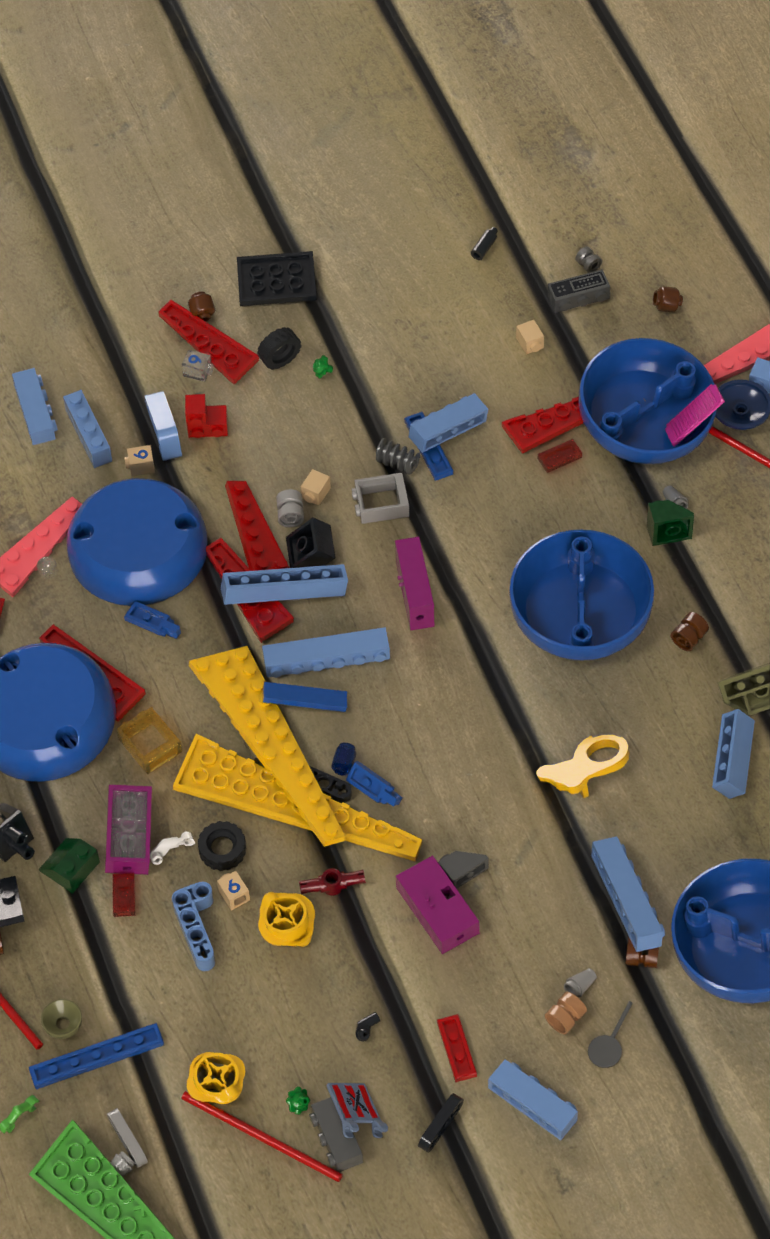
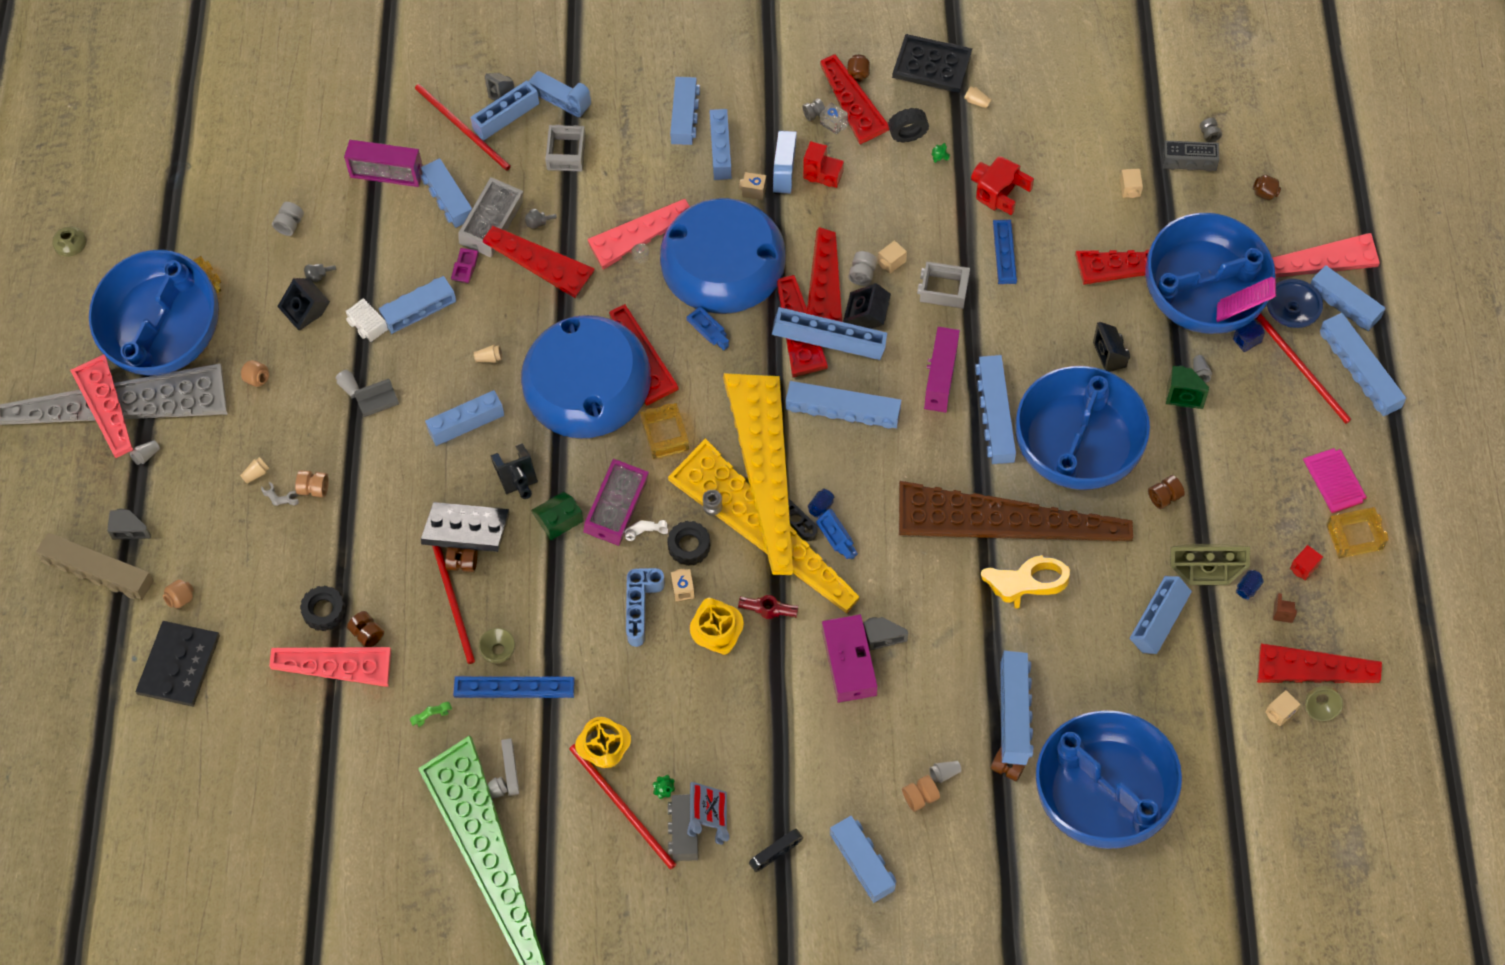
camera: 20 degrees right, 5 degrees up
(124, 895) = (591, 556): clear red plate -> none
(171, 363) = (813, 109): none -> flat silver wheel
(231, 795) = (715, 505): none -> flat silver wheel
(305, 696) = (809, 437): blue tile -> none
(338, 299) = (977, 97): none -> tan cone
(364, 1025) = (745, 742): black arm -> none
(394, 378) = (998, 181): none -> red piece
(395, 458) = (972, 253): dark grey piece -> none
(448, 422) = (1028, 236): medium blue brick -> none
(456, 1048) = (816, 789): red tile -> none
(482, 725) = (957, 514): none -> reddish brown wing
(484, 243) = (1124, 87): black cylinder -> none
(485, 605) = (996, 409): none -> medium blue brick
(559, 455) = (1115, 297): clear red plate -> none
(575, 506) = (1110, 347): none -> black slope
(606, 1050) = (944, 838): dark grey piece -> none
(709, 451) = (1249, 336): none -> clear blue brick

